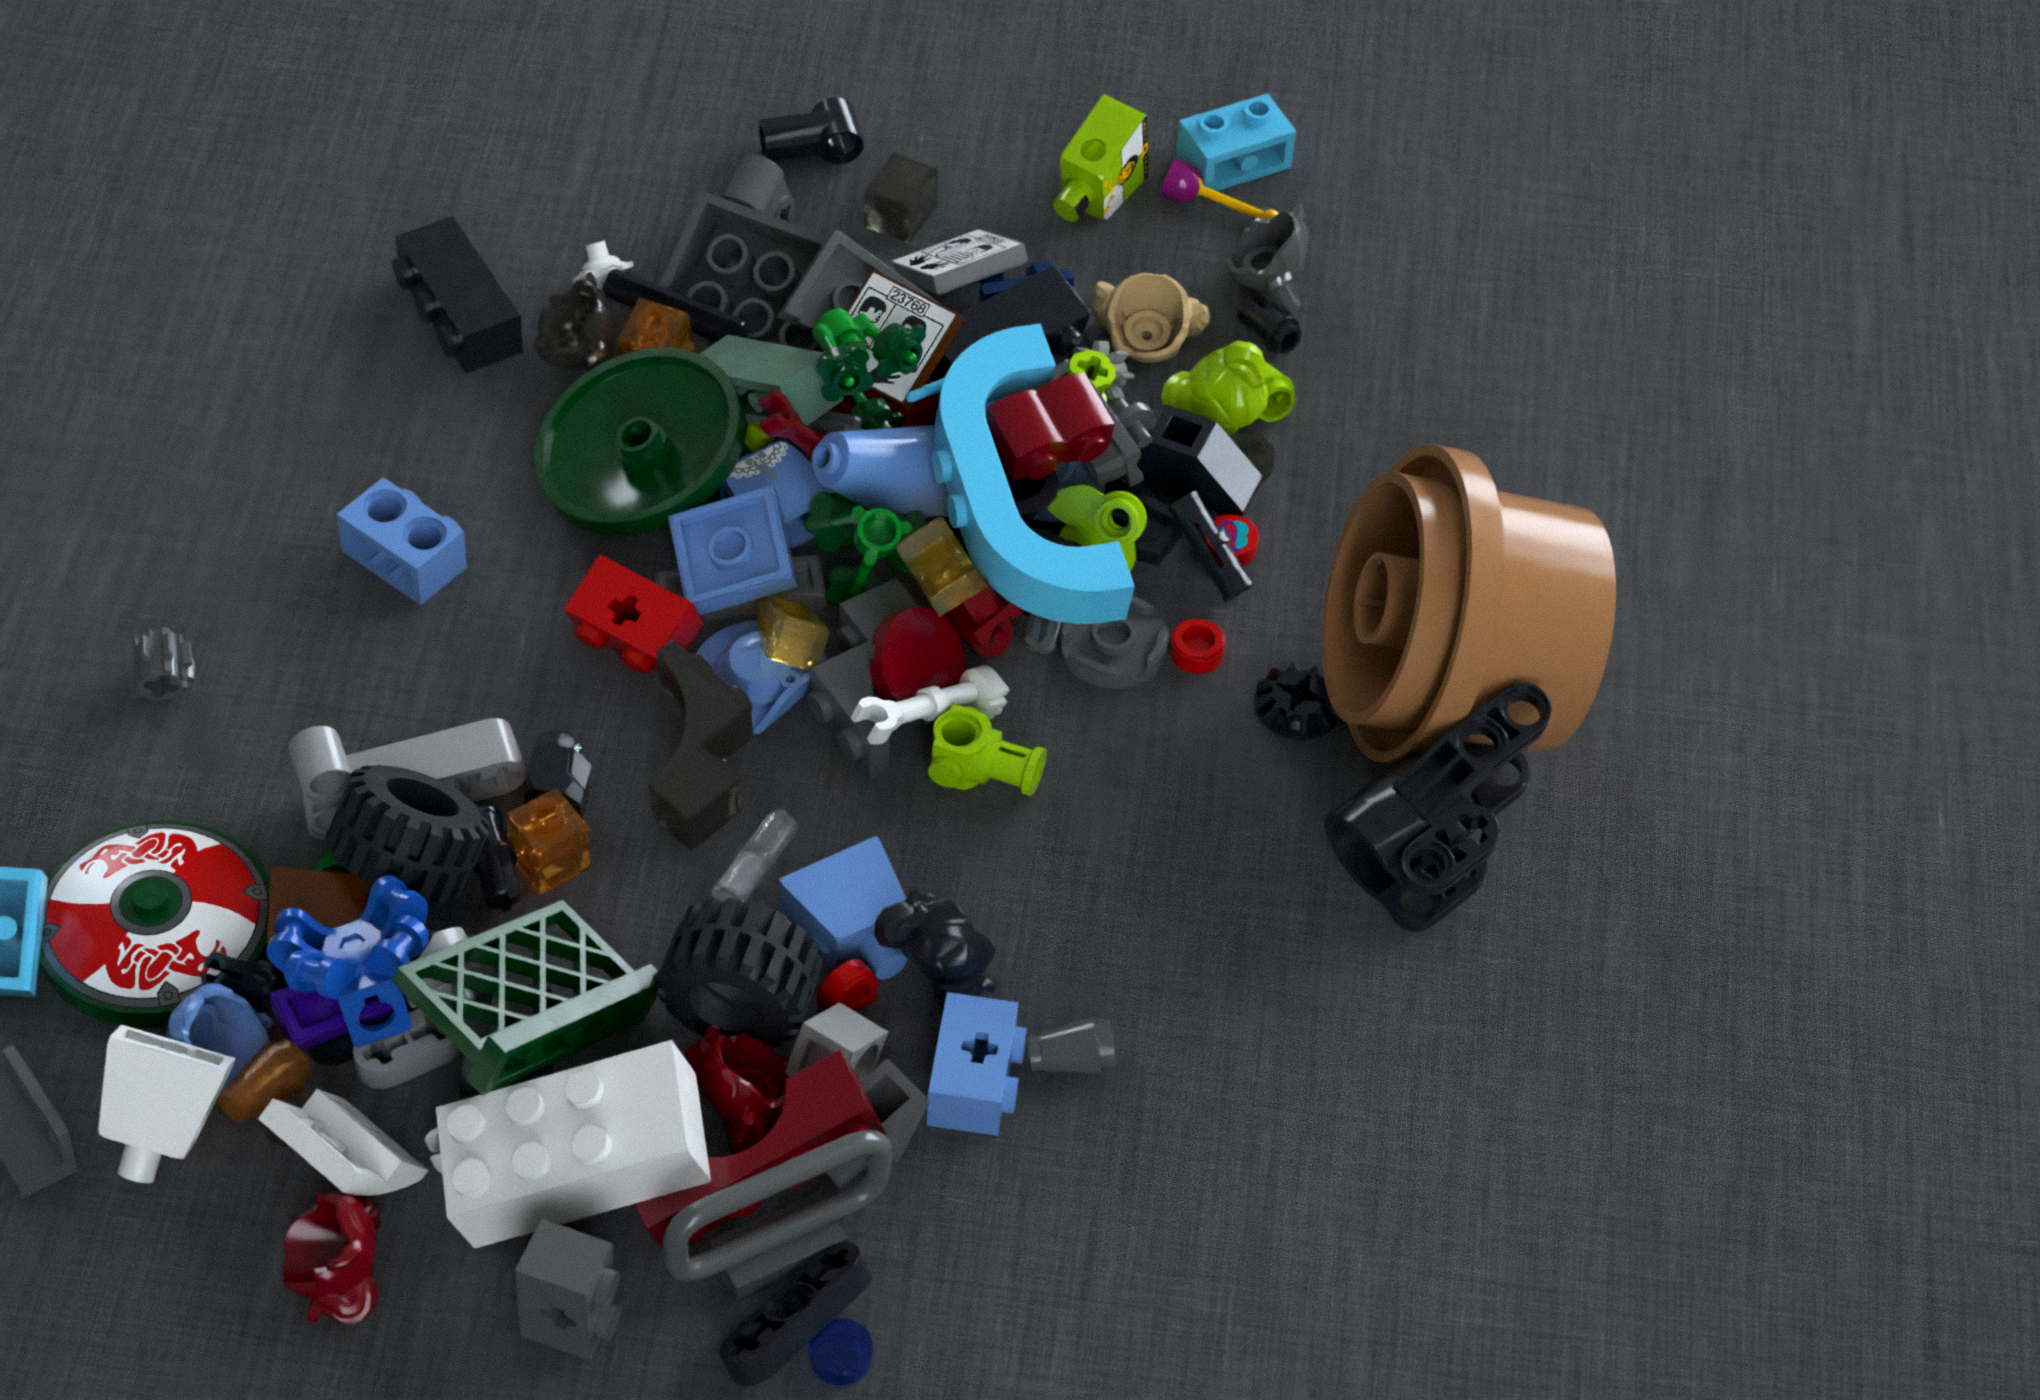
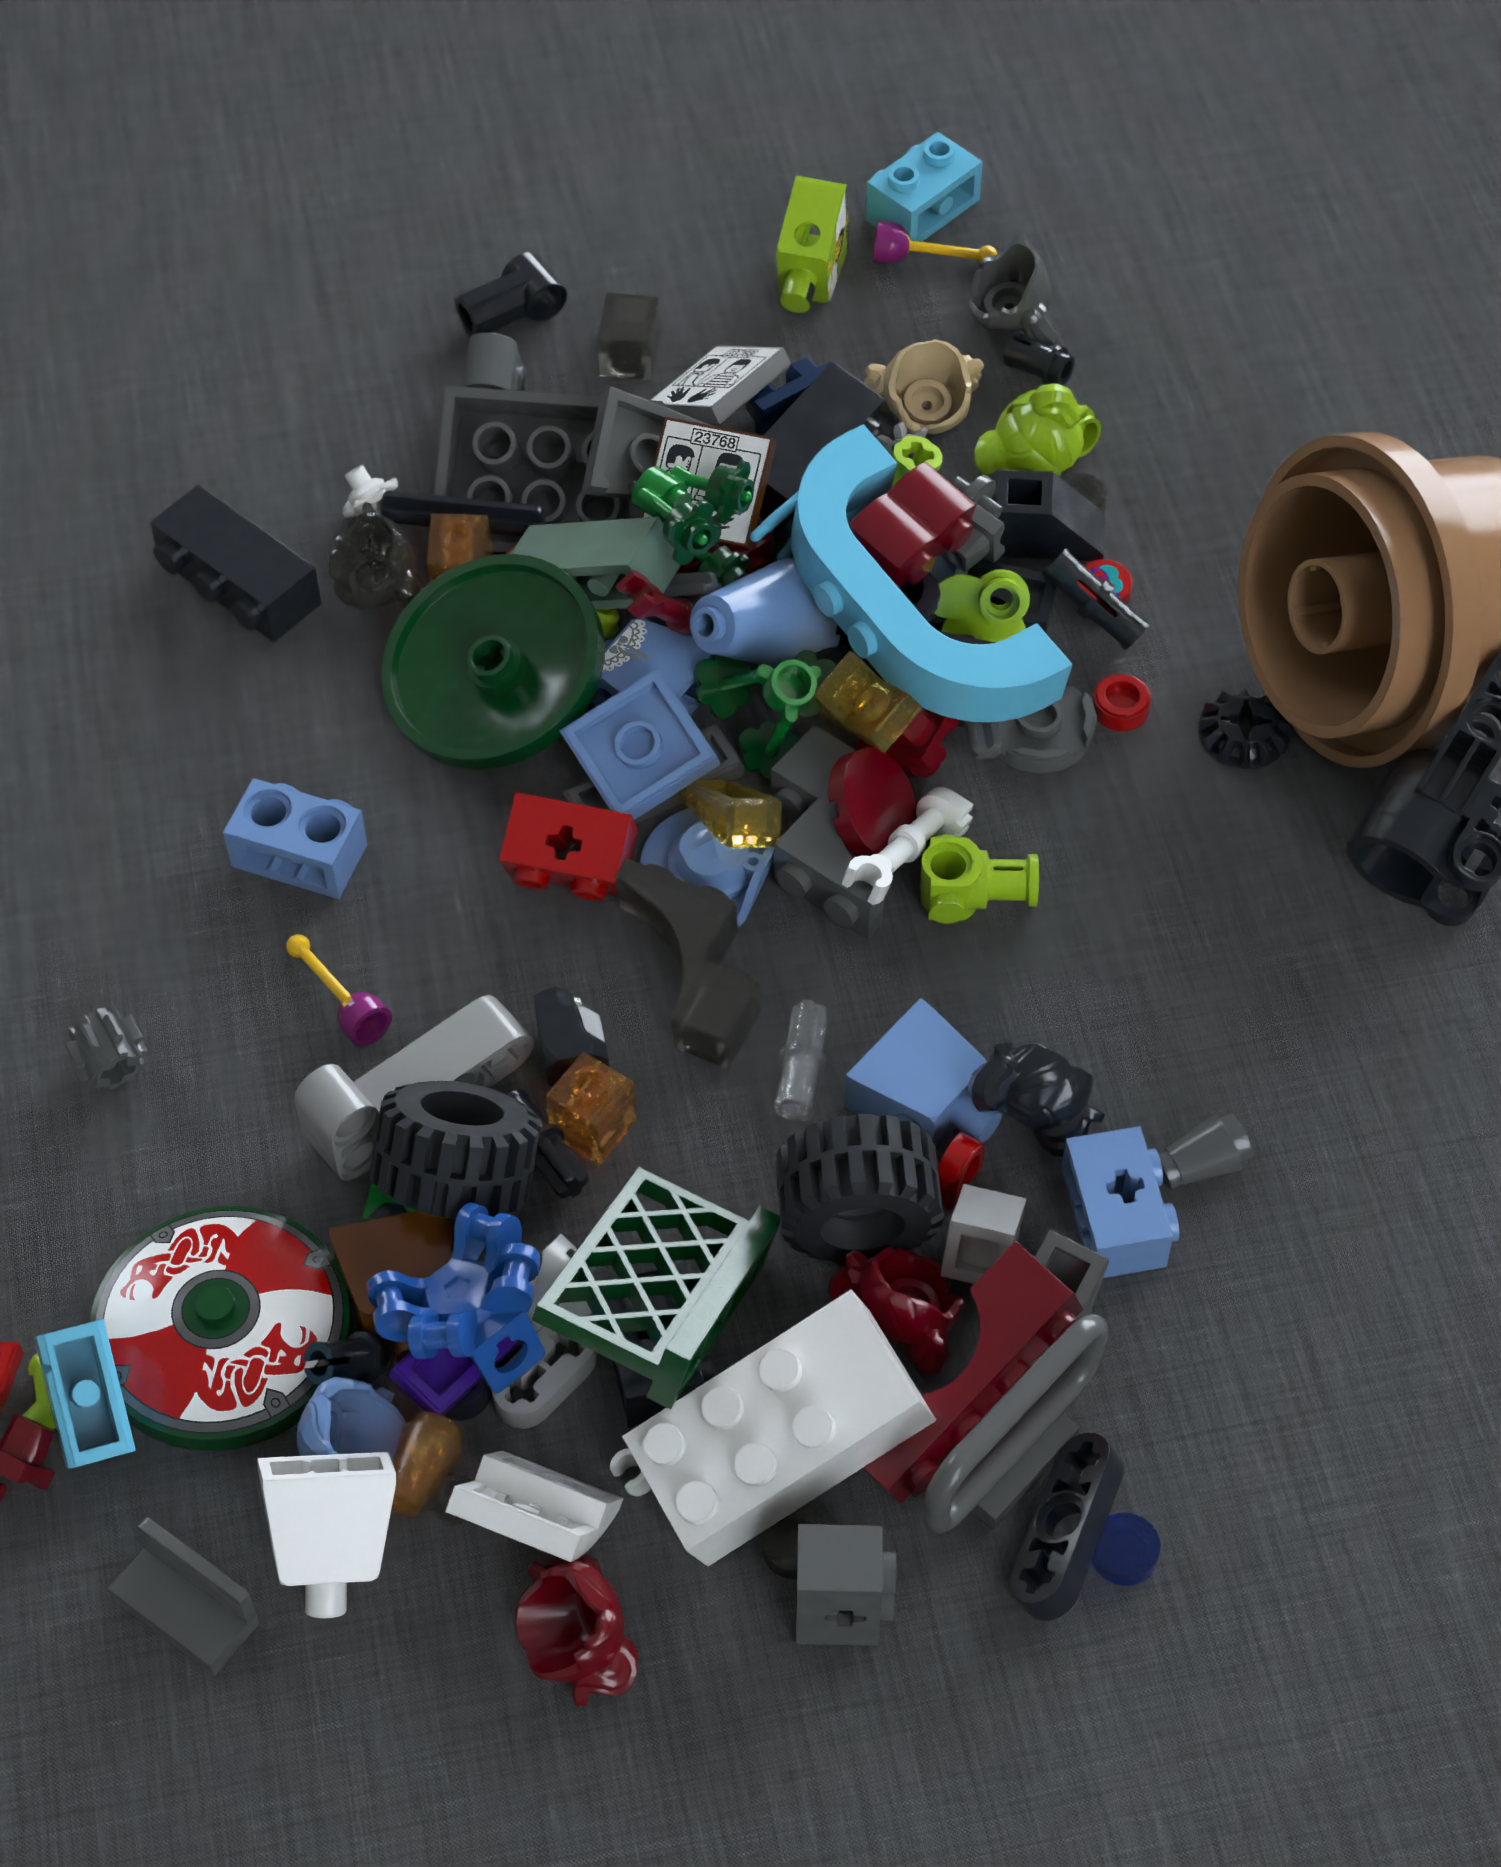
camera: 15 degrees left, 5 degrees up
(389, 694) = (361, 1014): none -> magenta hinge

